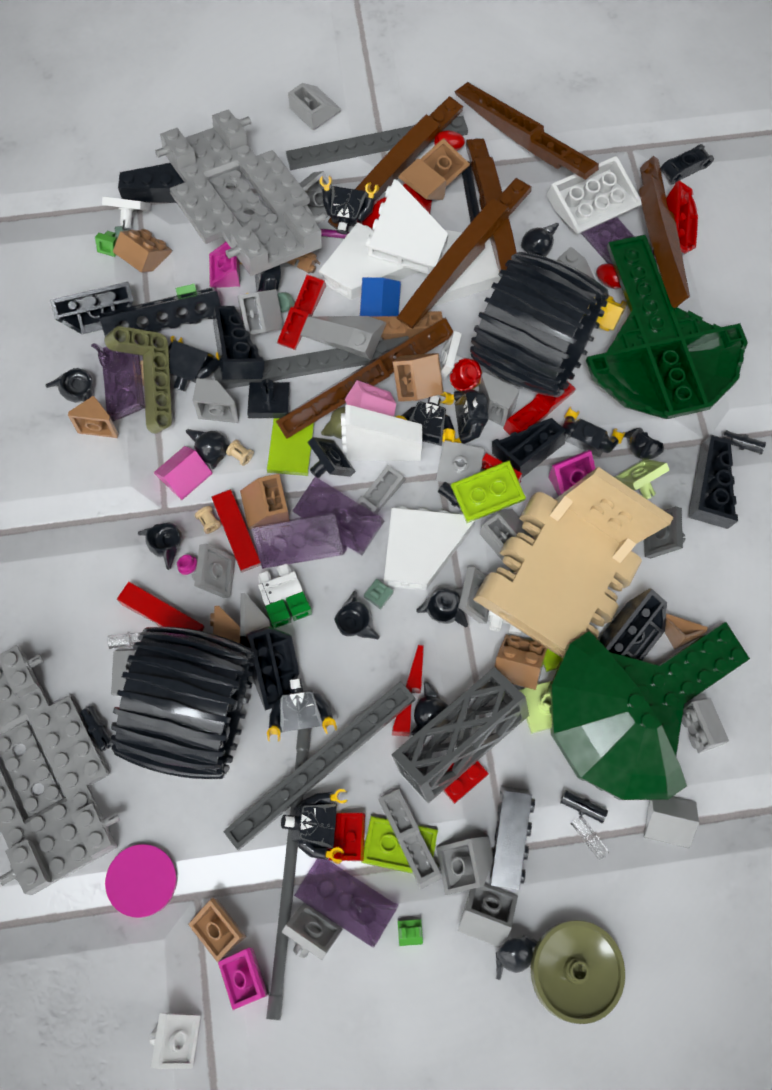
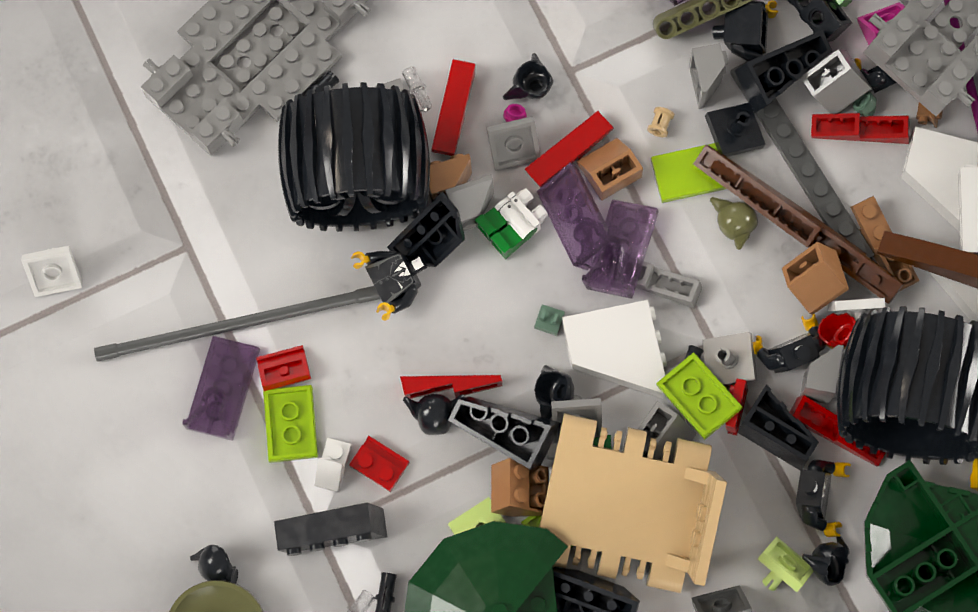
camera: 80 degrees right, 5 degrees up
(140, 881) = (186, 189): dark pink tile -> none
(183, 472) = (618, 73): dark pink slope -> none
(207, 519) = (571, 117): tan bush -> none
(209, 445) = (657, 88): black piece -> none
(216, 929) = (162, 275): medium nougat slope -> none
(242, 978) = (125, 315): dark pink slope -> none
(311, 932) = (182, 361): light grey tile -> none
(315, 825) = (283, 331): black torso -> none
(319, 766) = (345, 317): dark grey plate -> none
(330, 458) = (685, 217): black tile -> none
(349, 333) = (844, 185): light grey wedge -> none
(355, 619) = (509, 302): black piece -> none
(371, 398) = (758, 240): bright pink slope -> none
(379, 297) = (908, 206): blue slope -> none
(379, 436) = (722, 258): white slope -> none
(410, 839) = (298, 429): light grey slope -> none
(410, 932) = (210, 458): bright green tile -> none
(434, 421) = (768, 307): black torso -> none
(450, 818) = (332, 465): none -> white slope
(465, 864) = (290, 492): light grey slope -> none
(468, 654) = (508, 430): none -> black wedge
(470, 748) = (362, 433): dark grey piece -> none
(488, 914) = (248, 528): light grey slope -> none
(570, 471) = (759, 492): dark pink slope -> none

